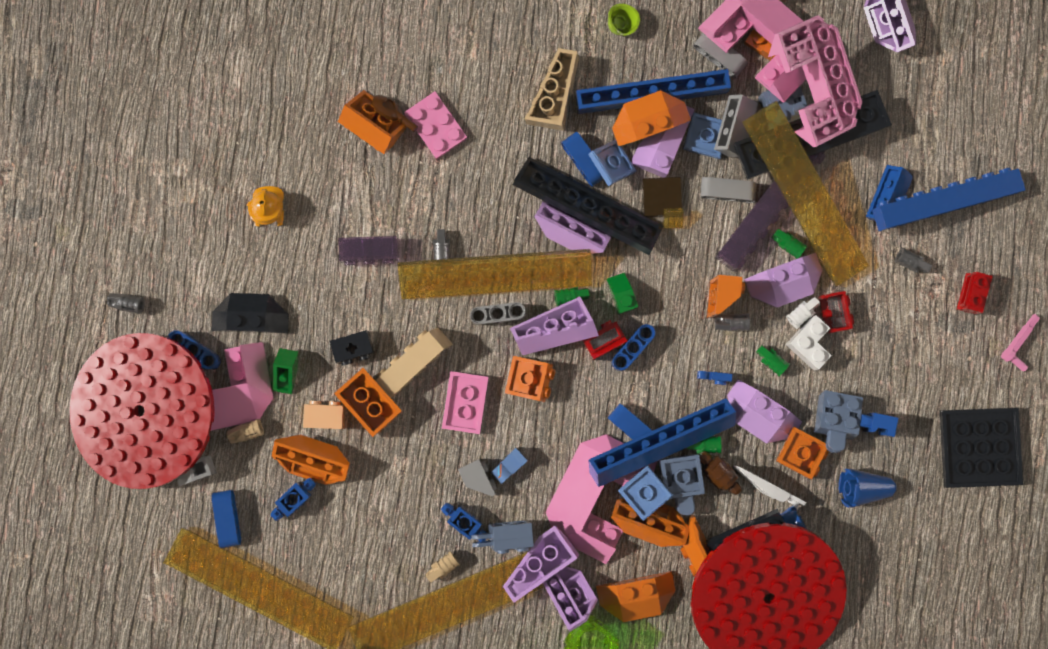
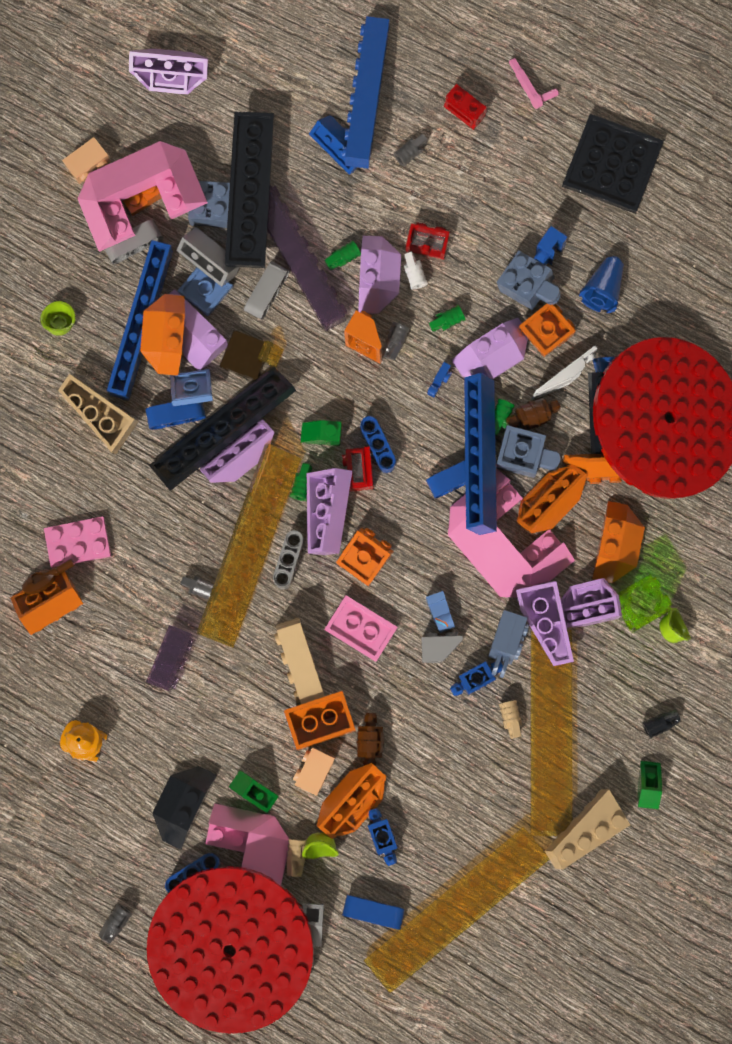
camera: 60 degrees left, 5 degrees down
(262, 447) = (318, 846): none -> lime helmet
(341, 345) = (252, 724): black brick -> none
(370, 453) = (370, 740): none -> reddish brown piece
(645, 493) = (521, 490): medium blue tile -> none
(805, 193) = (302, 219): clear yellow plate -> none
(806, 344) = (445, 281): white brick -> none
(828, 74) = (181, 148): bright pink slope -> none

